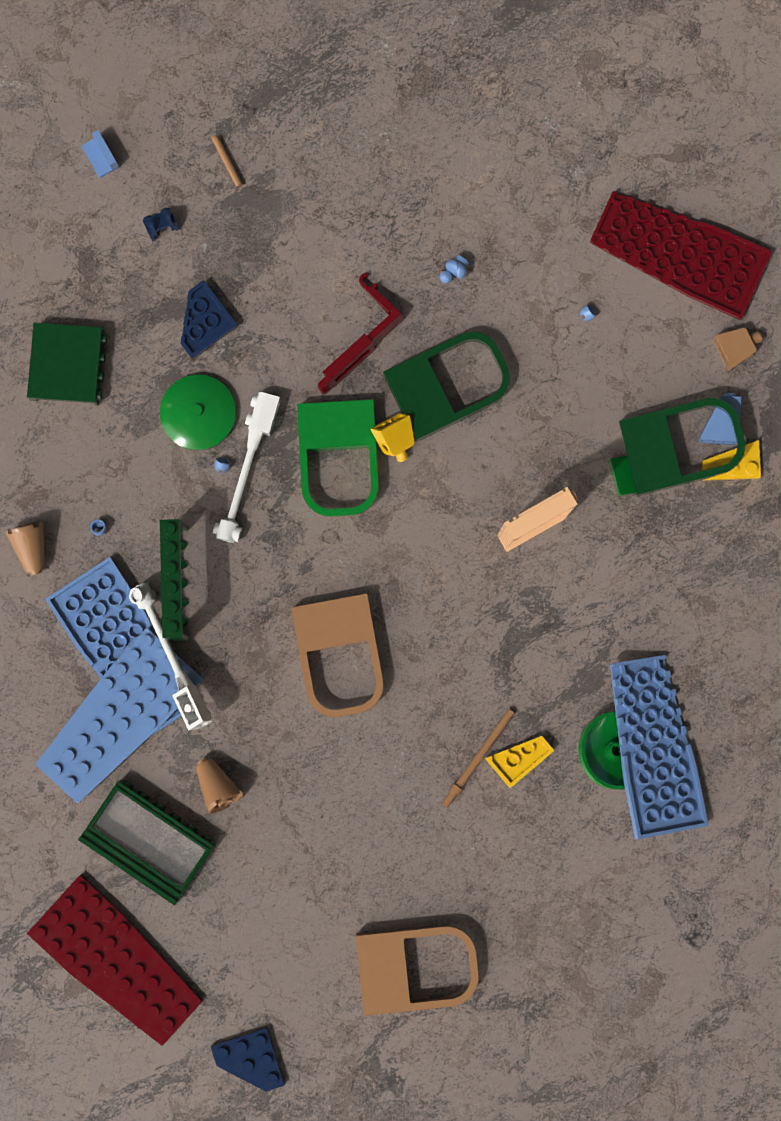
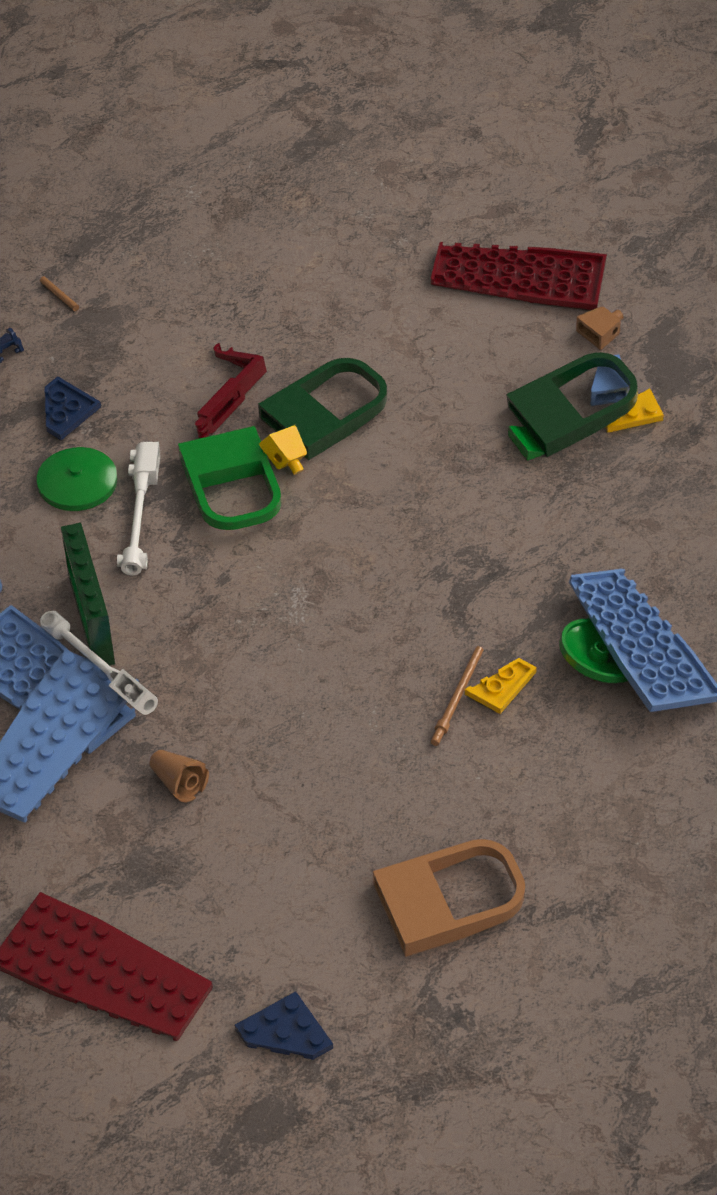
camera: 15 degrees left, 35 degrees down
(147, 841) = (112, 841): window -> none
(222, 464) = (111, 510): medium blue hinge -> none
(331, 626) = (271, 613): medium nougat window -> none
(454, 267) = (306, 322): medium blue animal -> none
(537, 519) = (449, 459): light nougat window -> none
(588, 312) = (447, 330): medium blue hinge -> none

